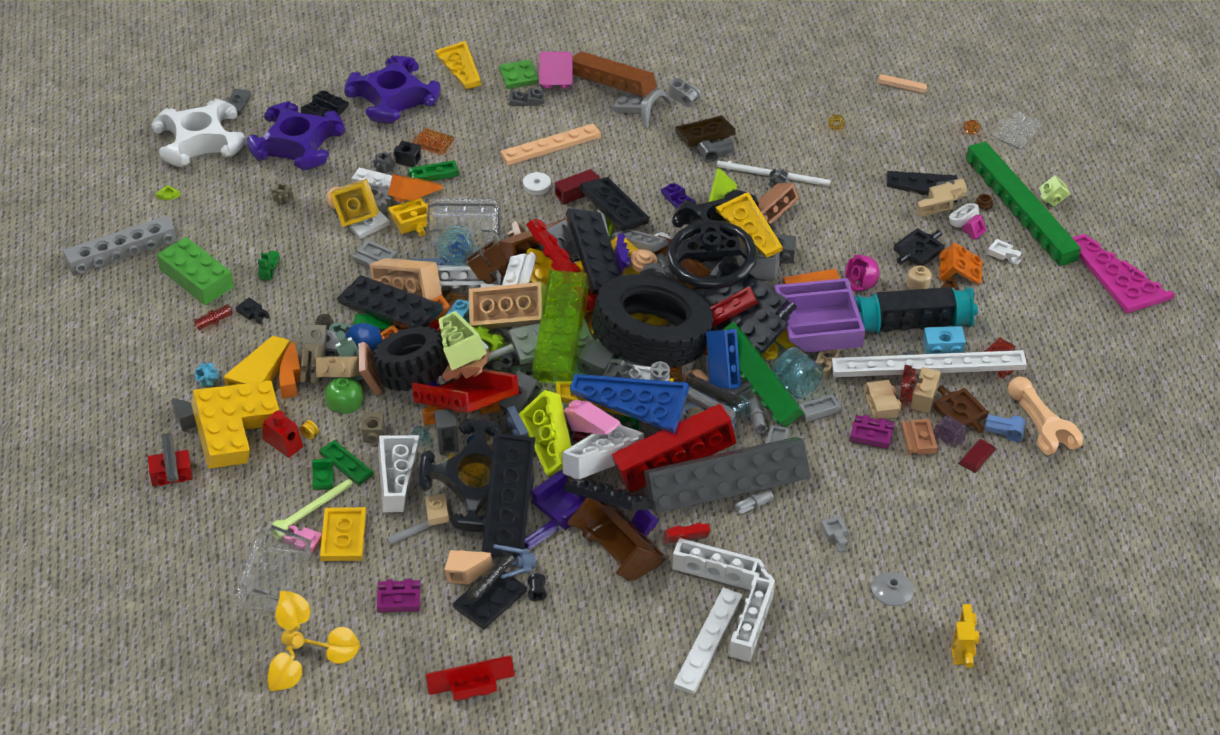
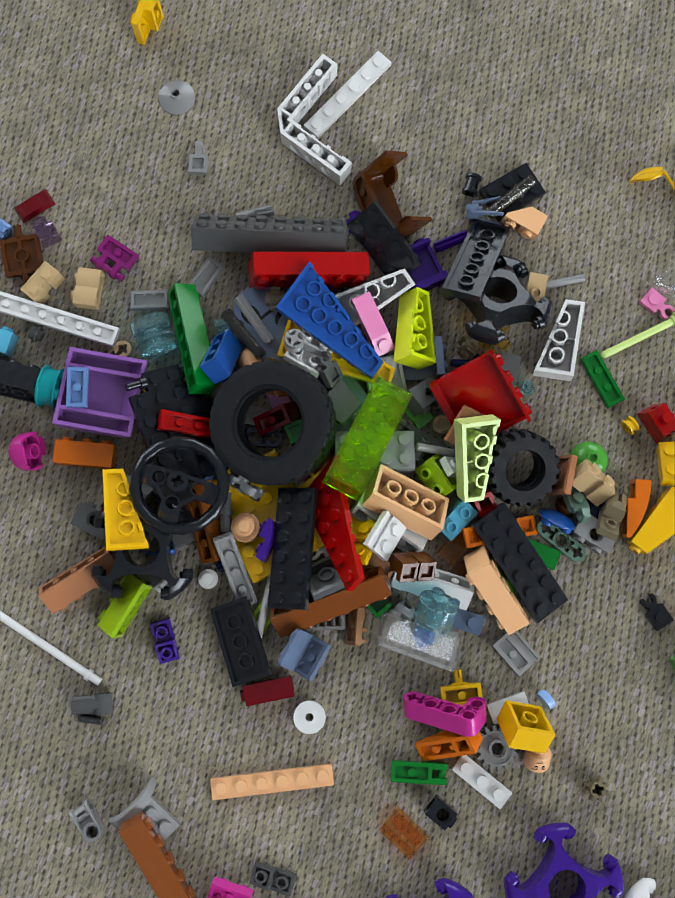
camera: 165 degrees left, 35 degrees up
(267, 265) = (634, 665): green bar -> none
(322, 474) = (627, 368): green bracket -> none
(324, 319) = (592, 569): clear smoke plate -> none
(339, 233) = (546, 699): none -> light blue tile
(343, 534) = (622, 294): yellow plate -> none
(372, 426) = (567, 414): dark tan brick -> none
(383, 162) = (474, 810): dark grey gear -> none
(398, 600) = (589, 209): magenta plate -> none
(412, 192) = (456, 718): none -> dark pink beam
(471, 678) = (550, 108): red bracket -> none
(554, 210) = (304, 654): none -> sand blue bracket
(692, 532) = (330, 187): red slope -> none
(705, 130) = (91, 739): dark brown plate -> none
(757, 415) = (210, 307): light grey pin -> none
(777, 176) = (46, 628): dark grey gear -> none
(839, 301) = (77, 387): none -> medium blue plate
(907, 378) = (58, 287): clear red plate -> none
(919, 436) = (76, 237): nougat plate -> none

